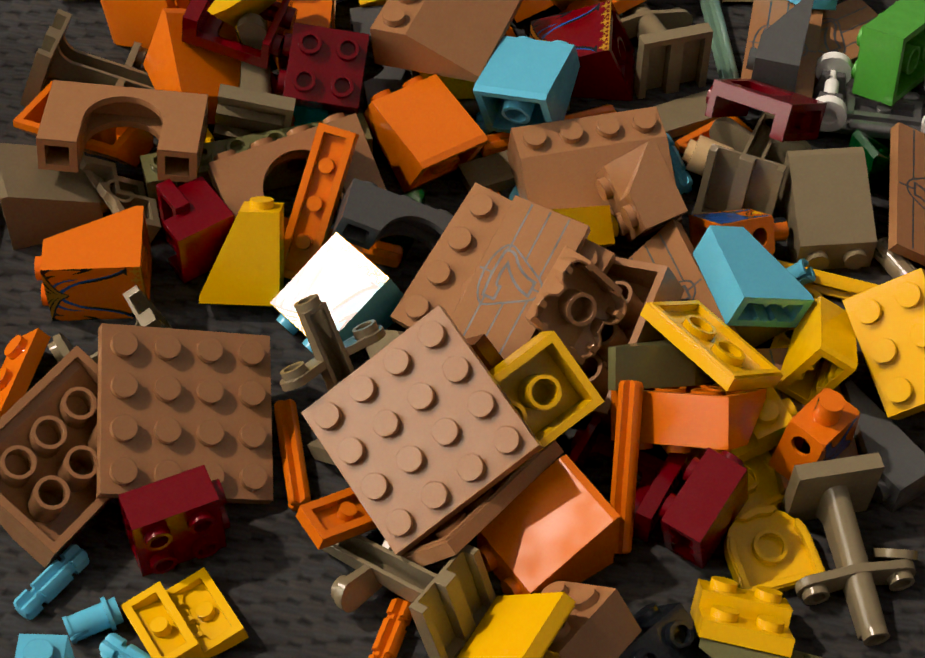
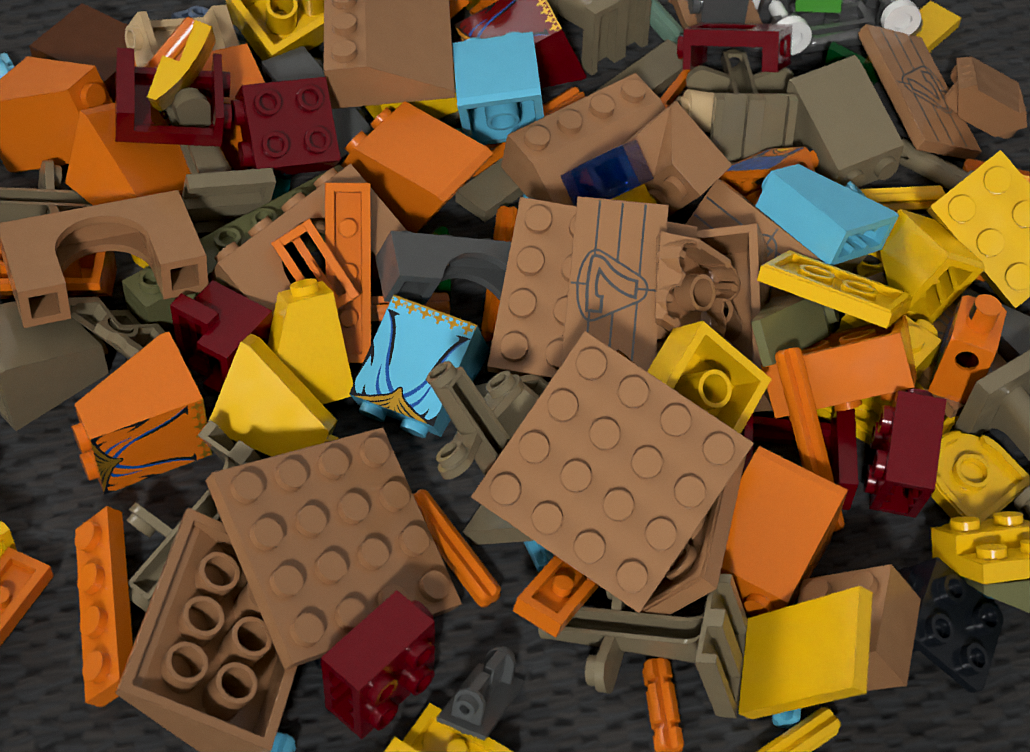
camera: 25 degrees left, 0 degrees up
(196, 287) = (268, 404): none -> yellow slope
(245, 576) = (484, 695): none -> dark grey hinge
(300, 185) = (294, 236): none -> orange tile
(577, 186) = (608, 174): none -> clear blue slope

